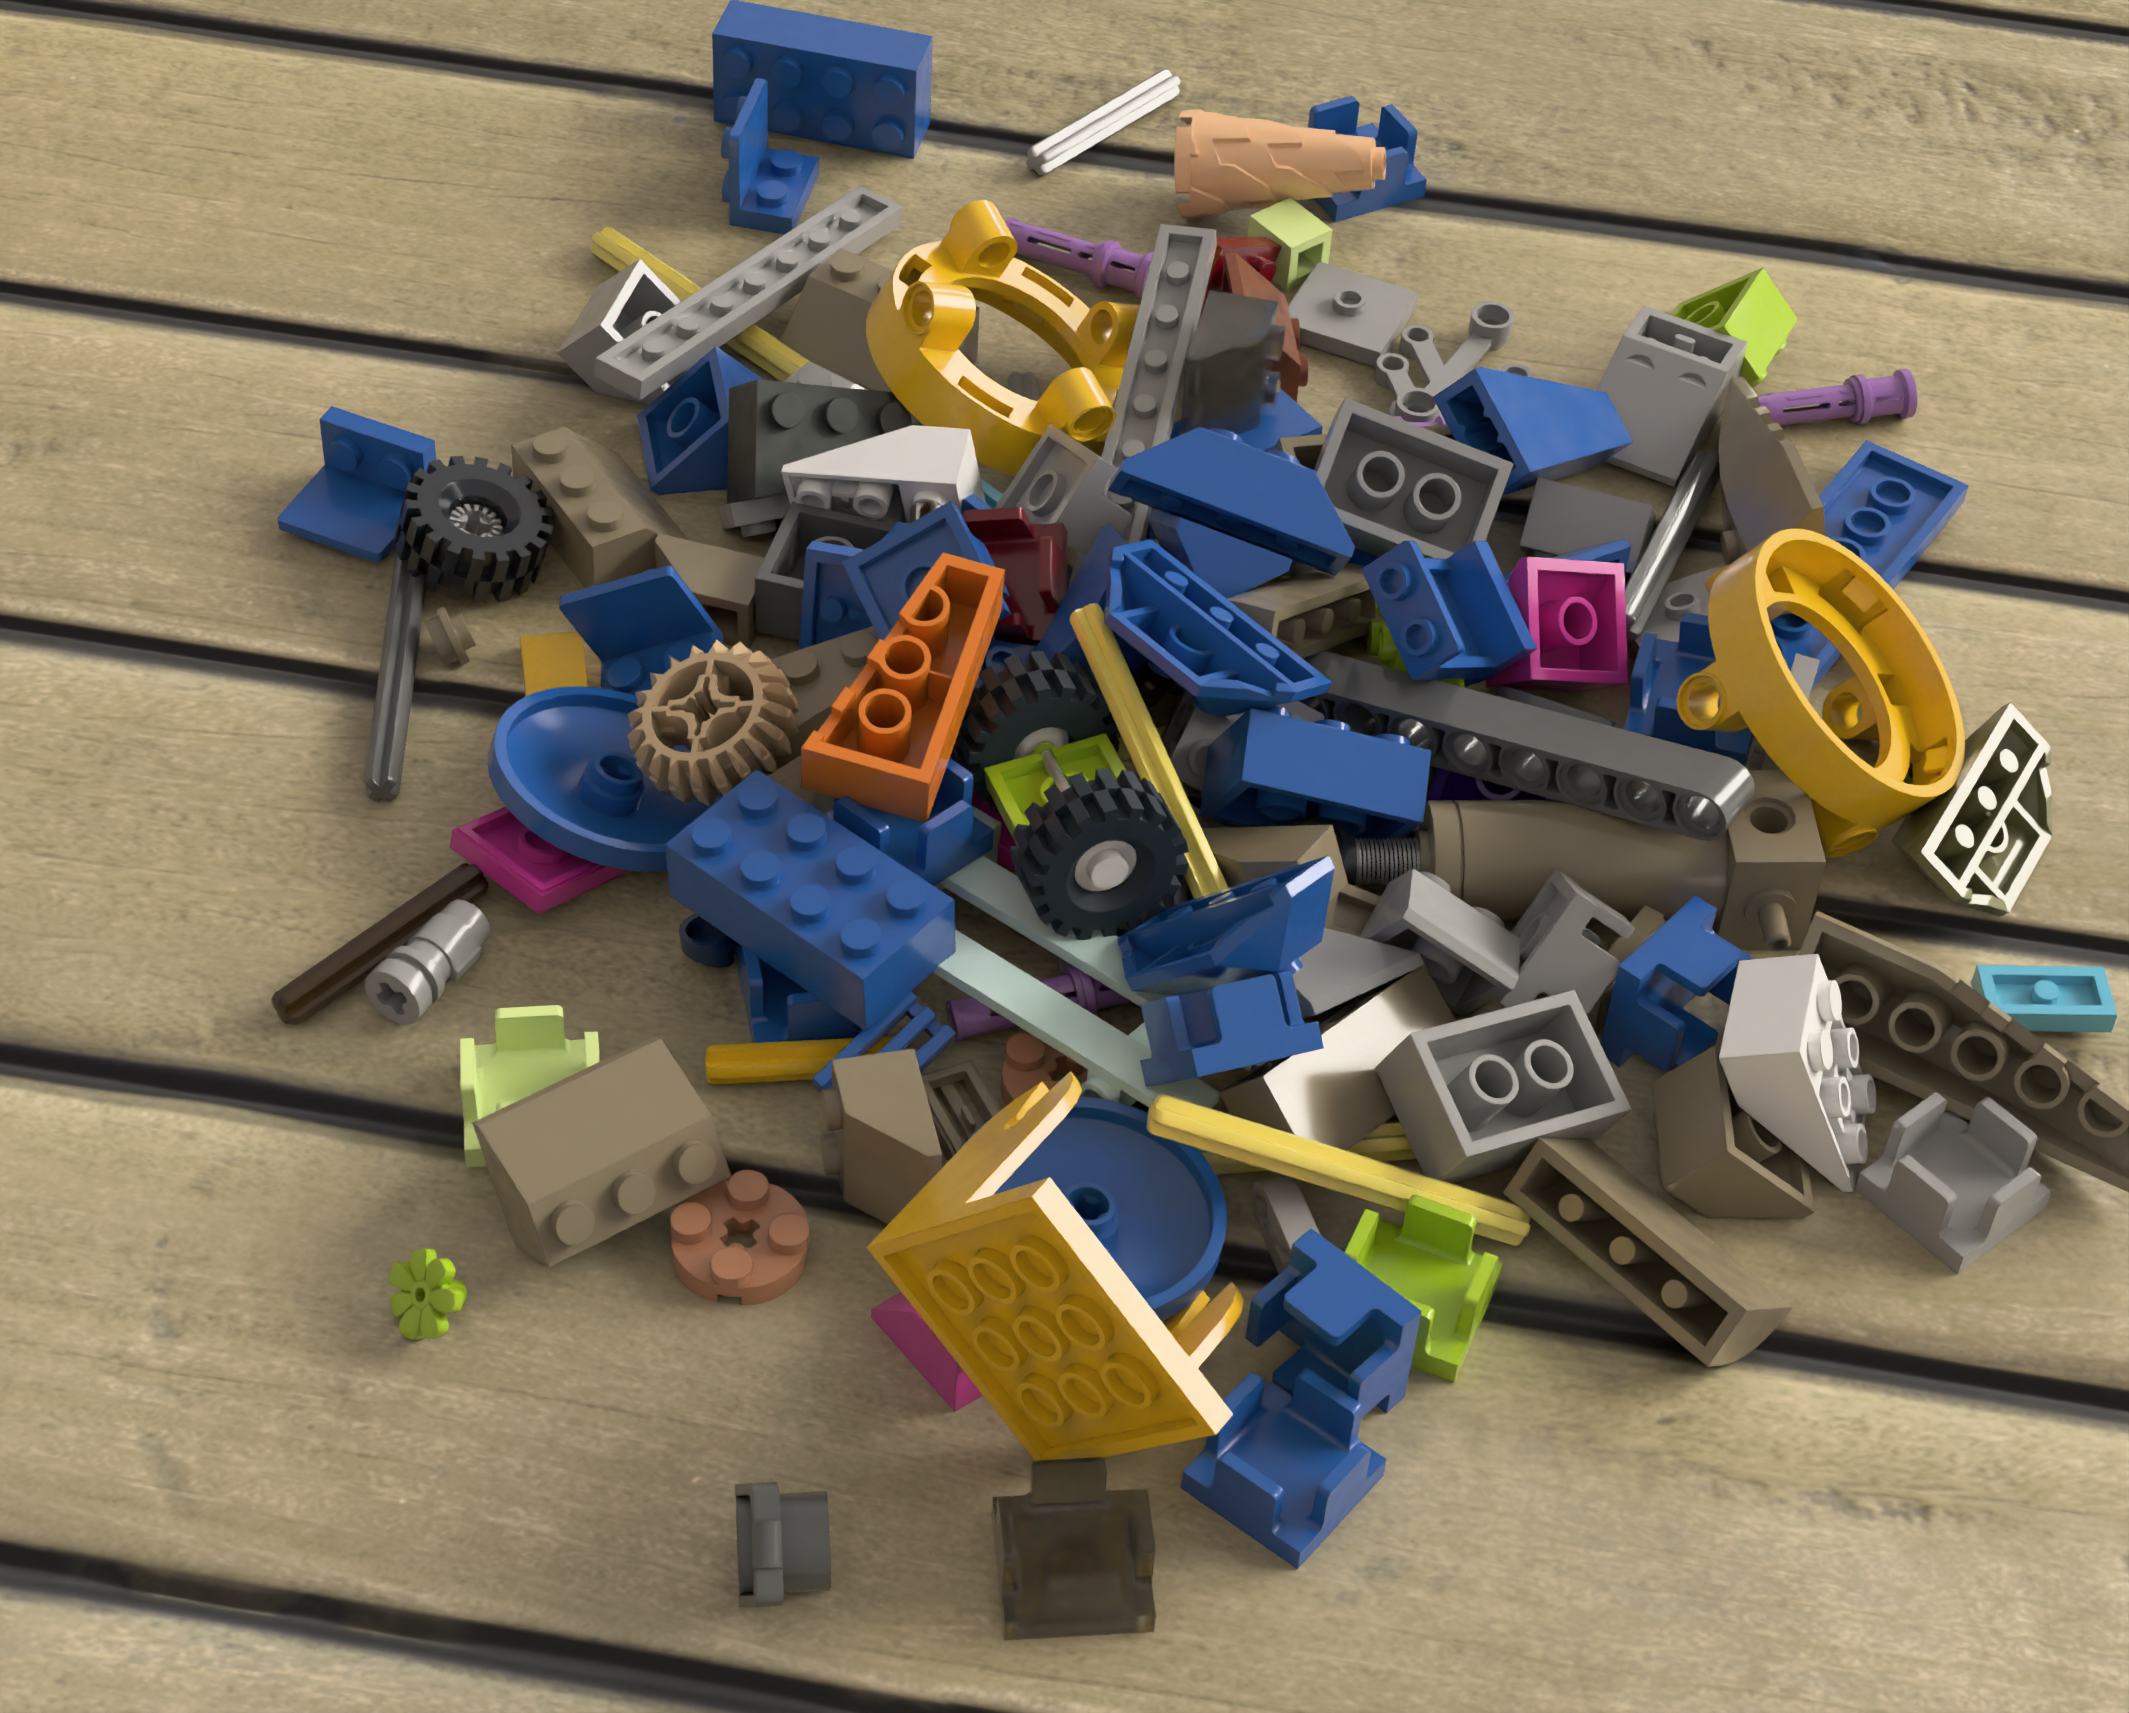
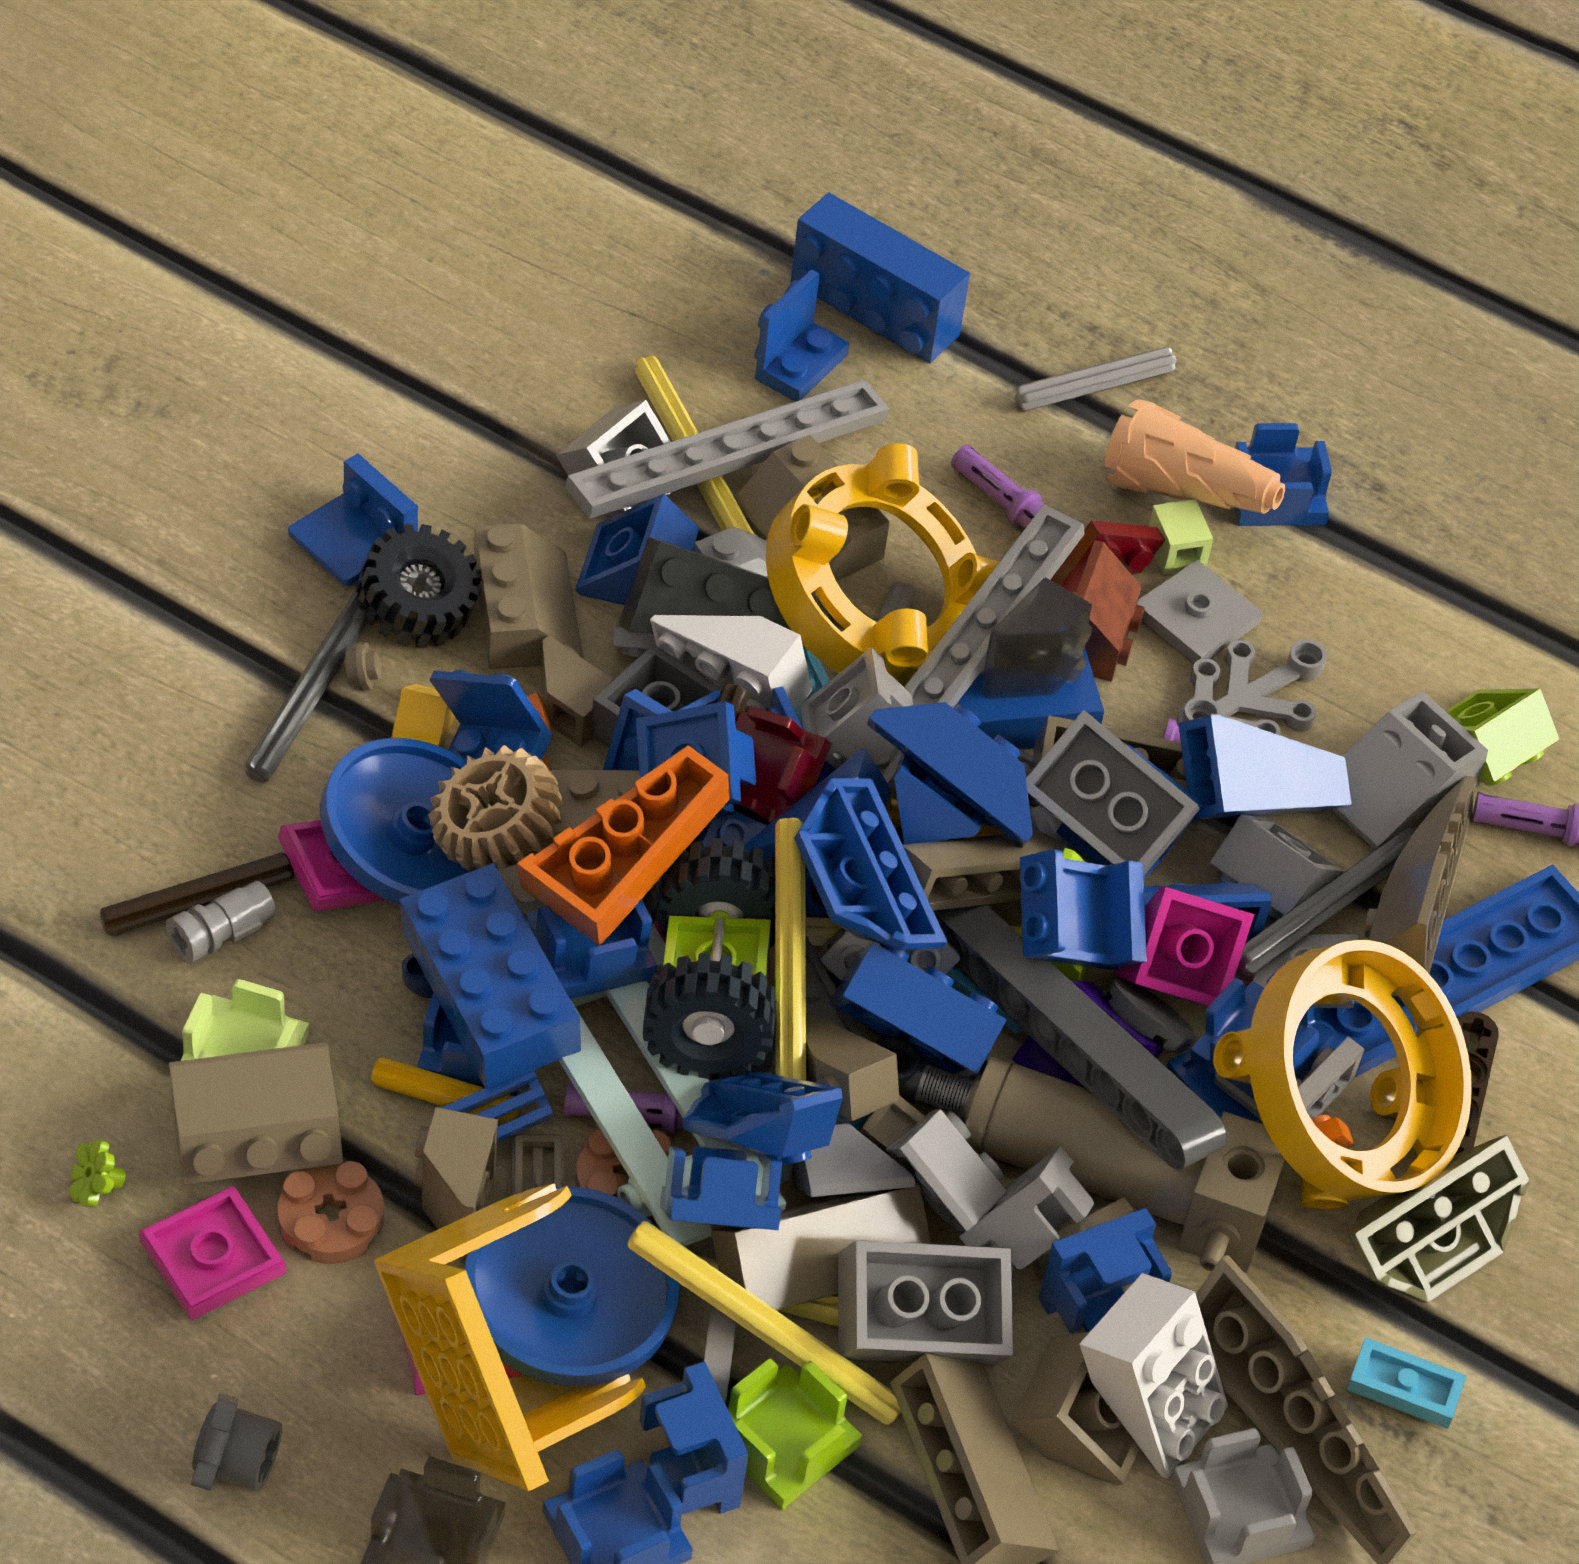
camera: 20 degrees right, 5 degrees up
(622, 1335) = (212, 1252): none -> dark pink plate

